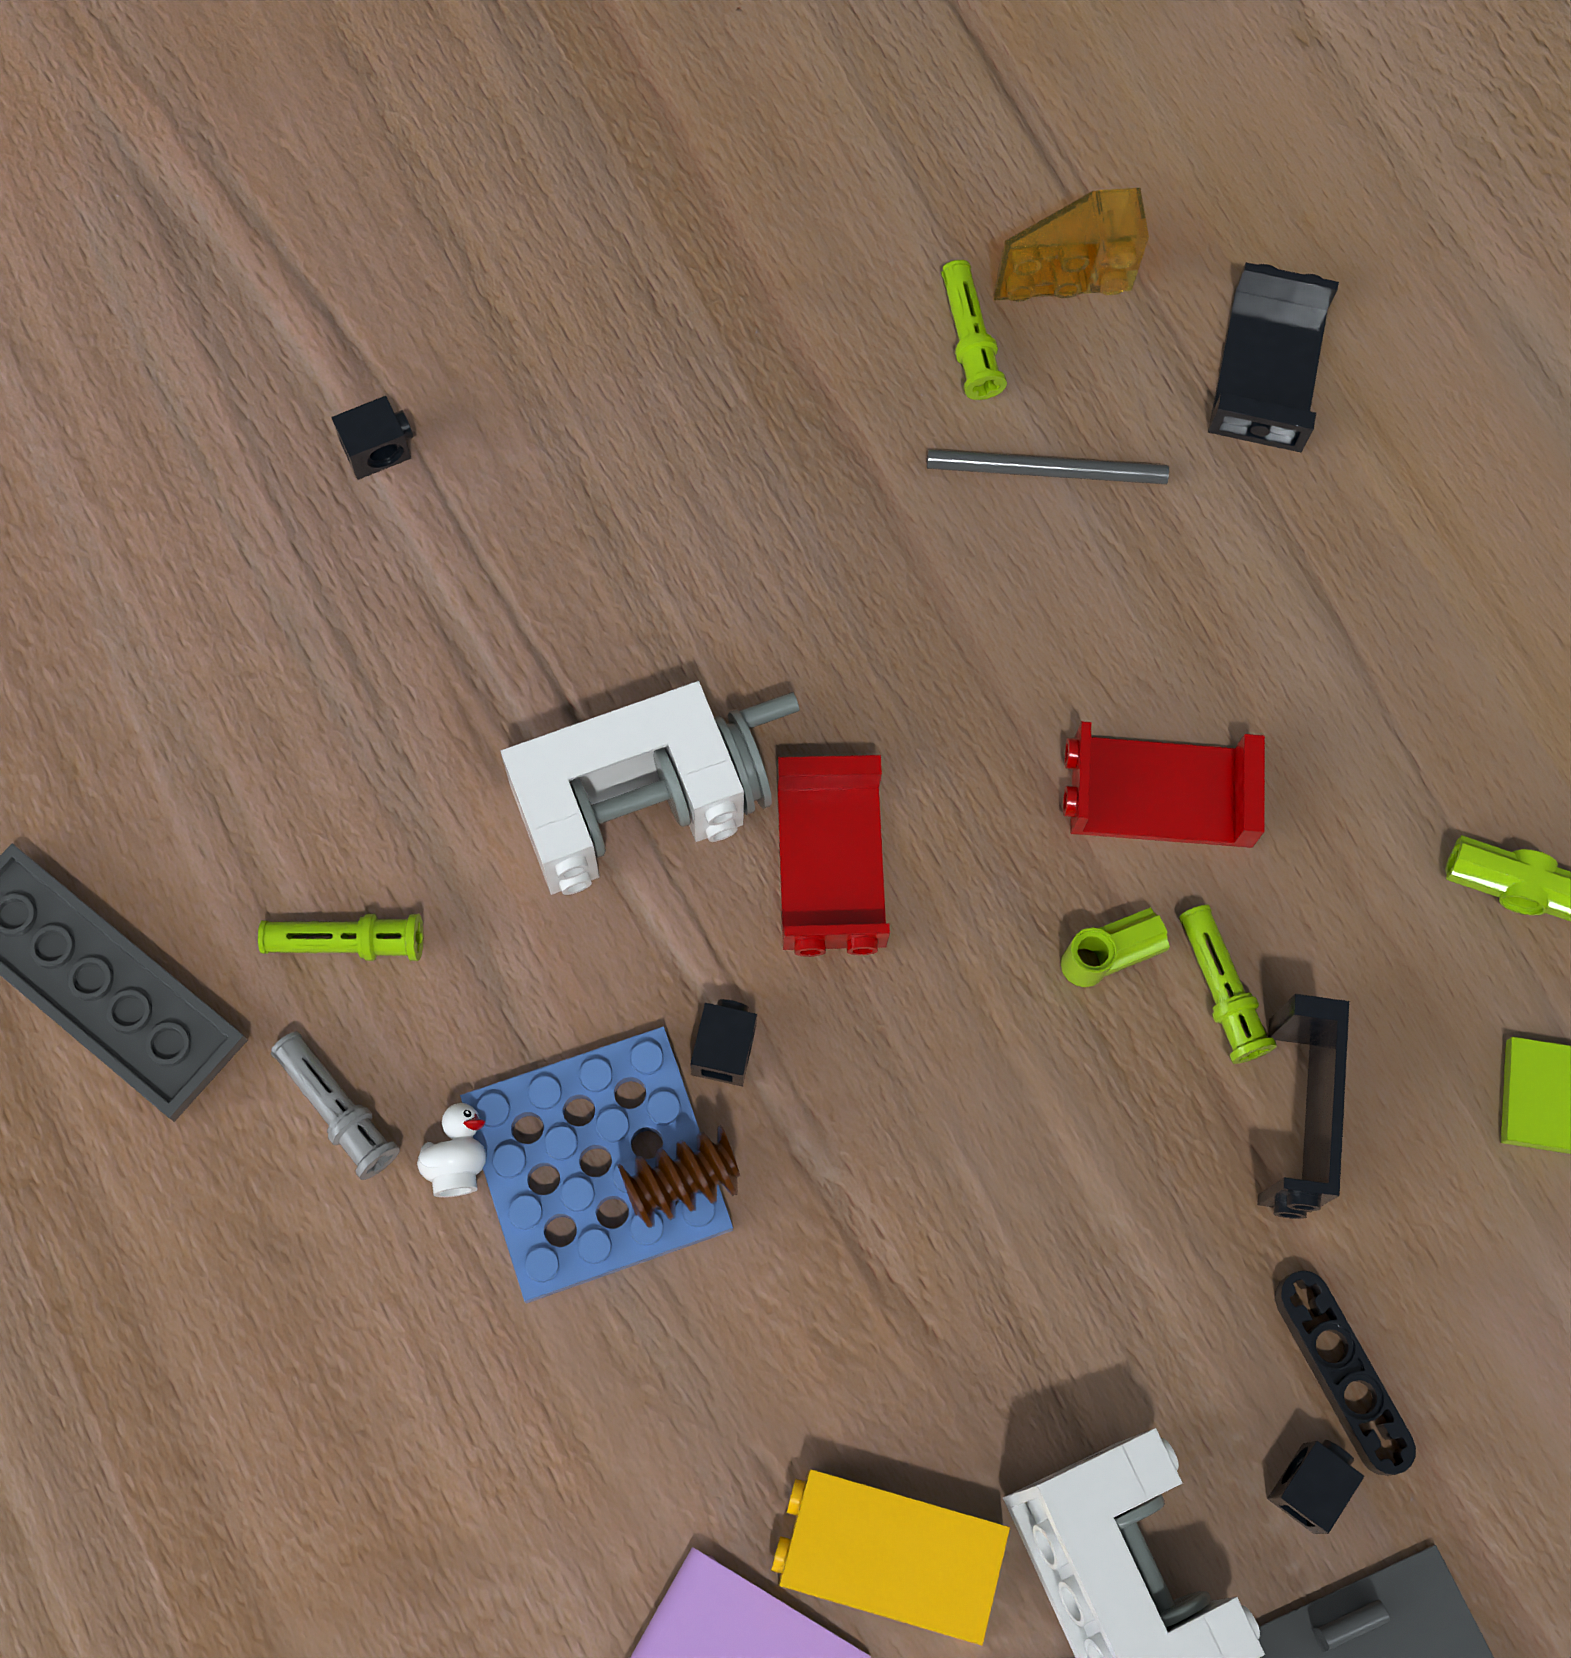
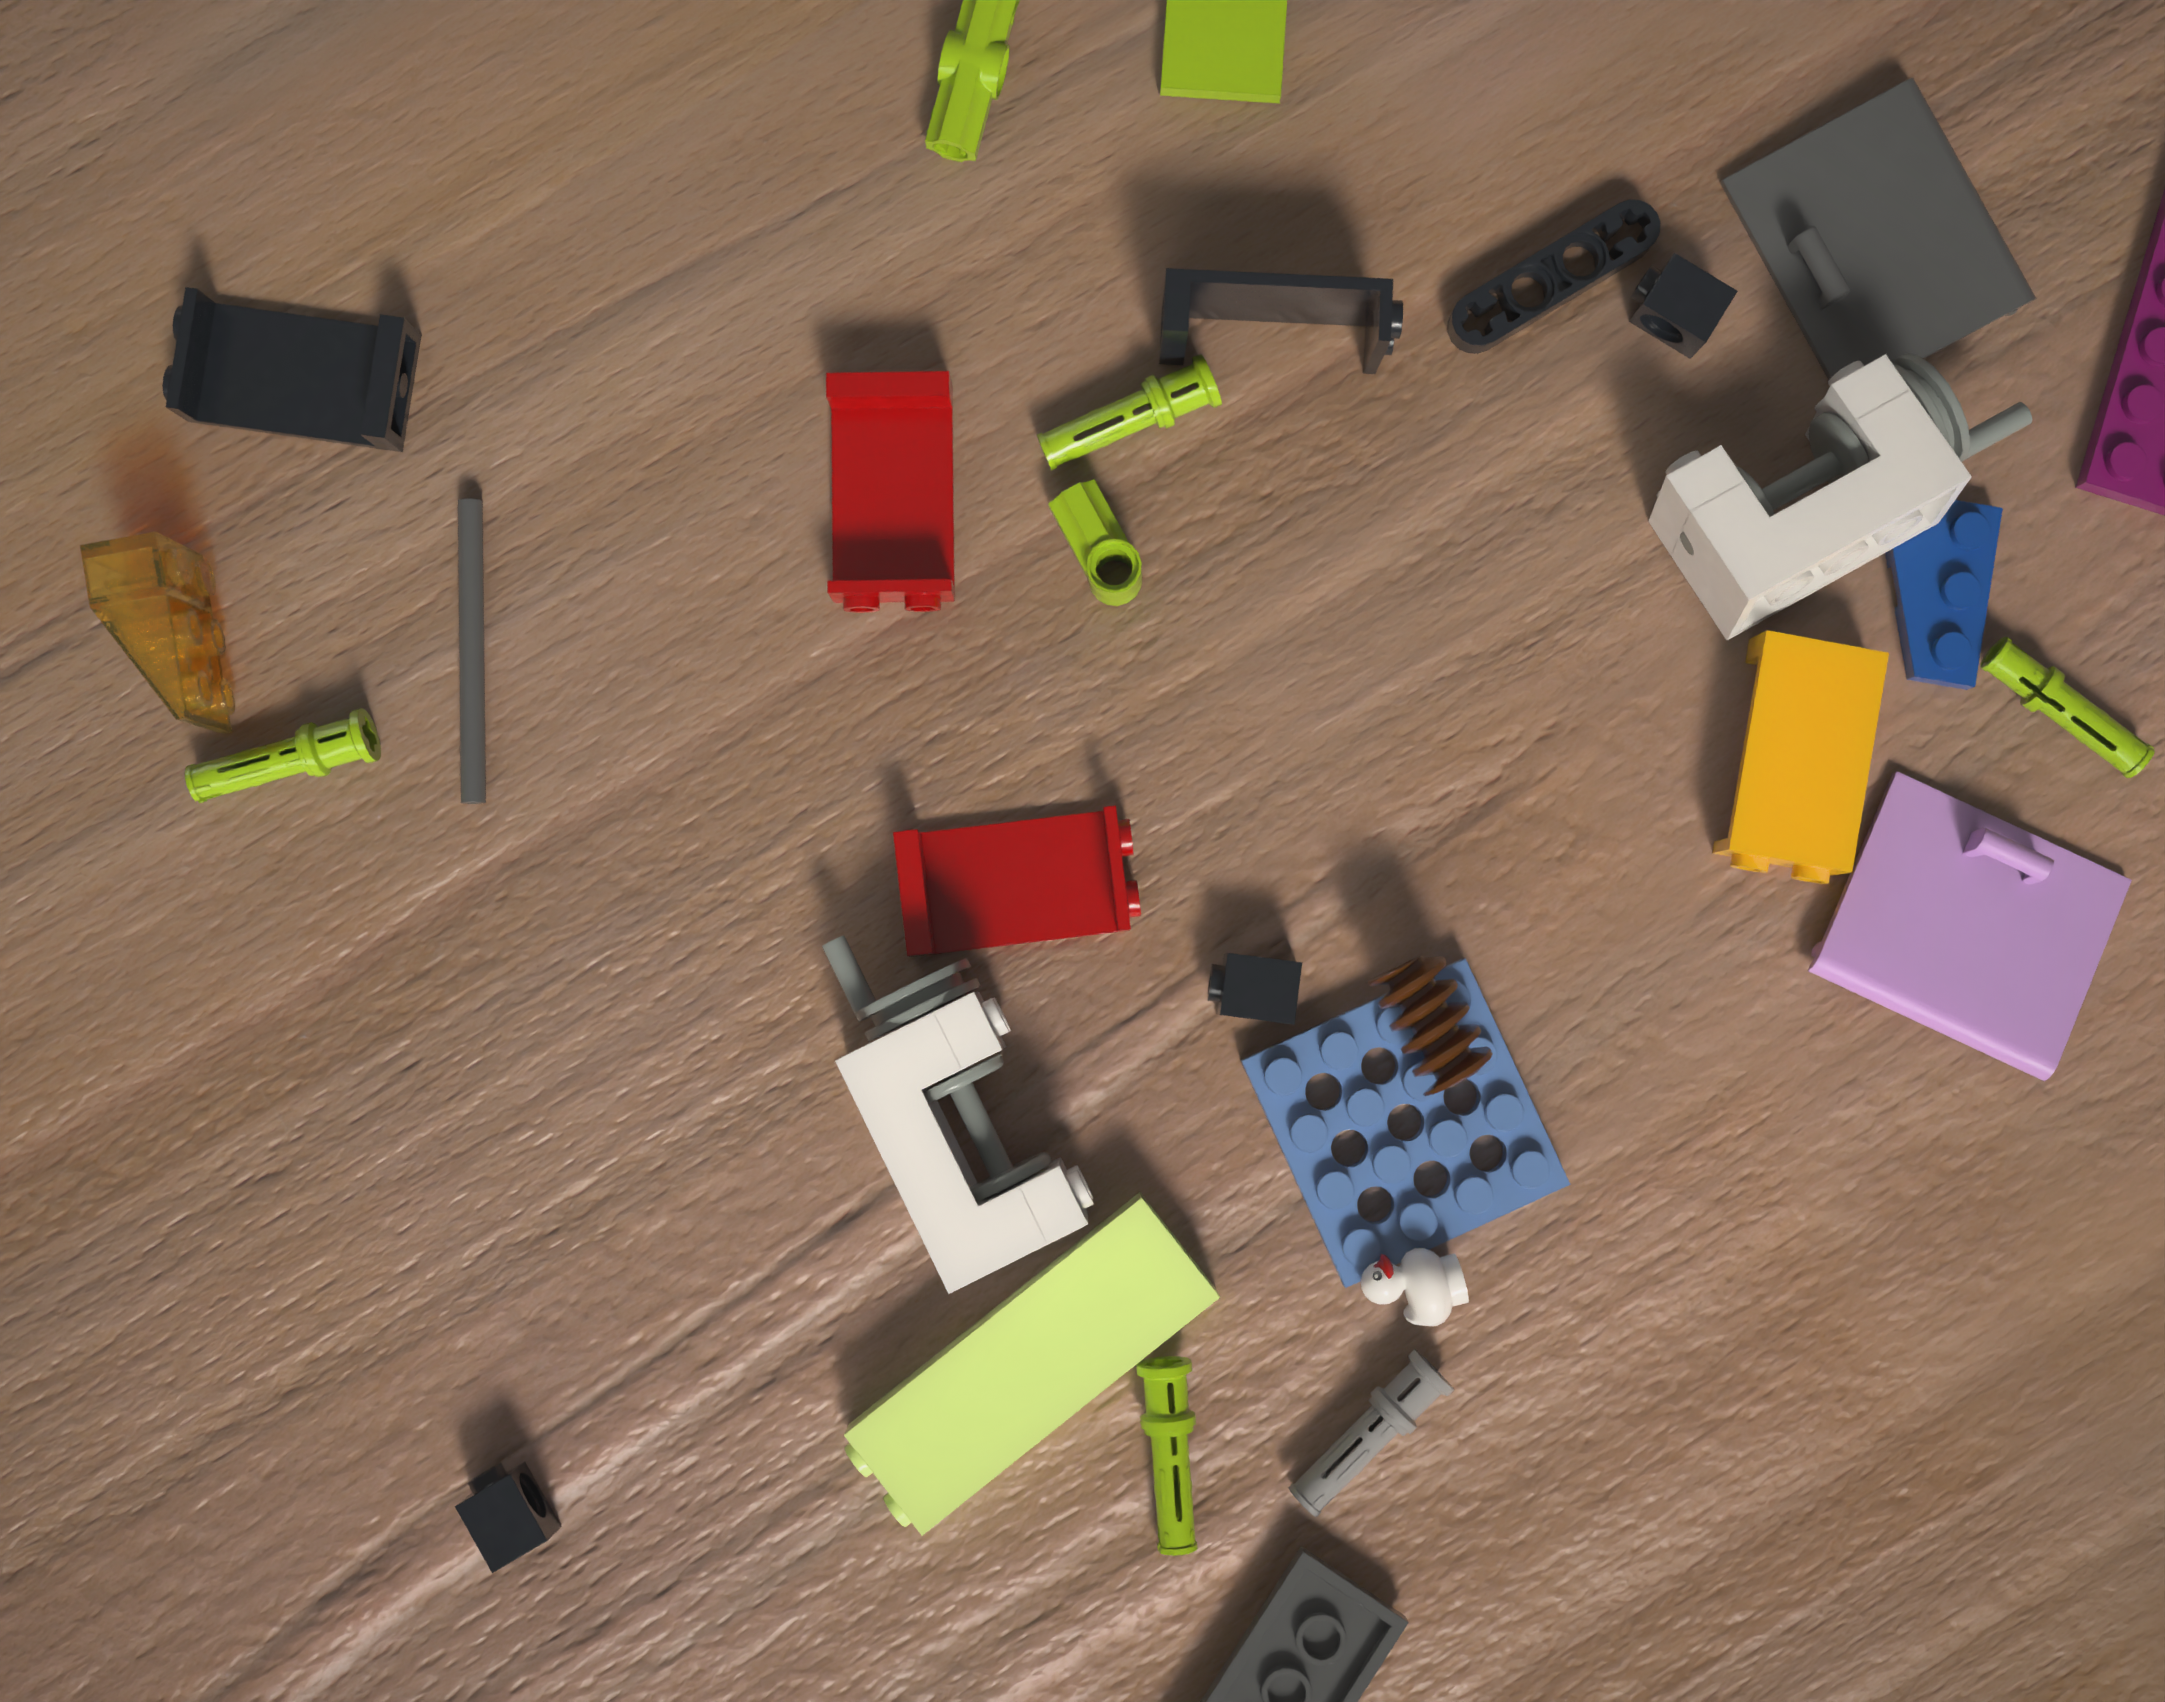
camera: 90 degrees left, 15 degrees up
(435, 833) = (1028, 1365): none -> yellowish green brick

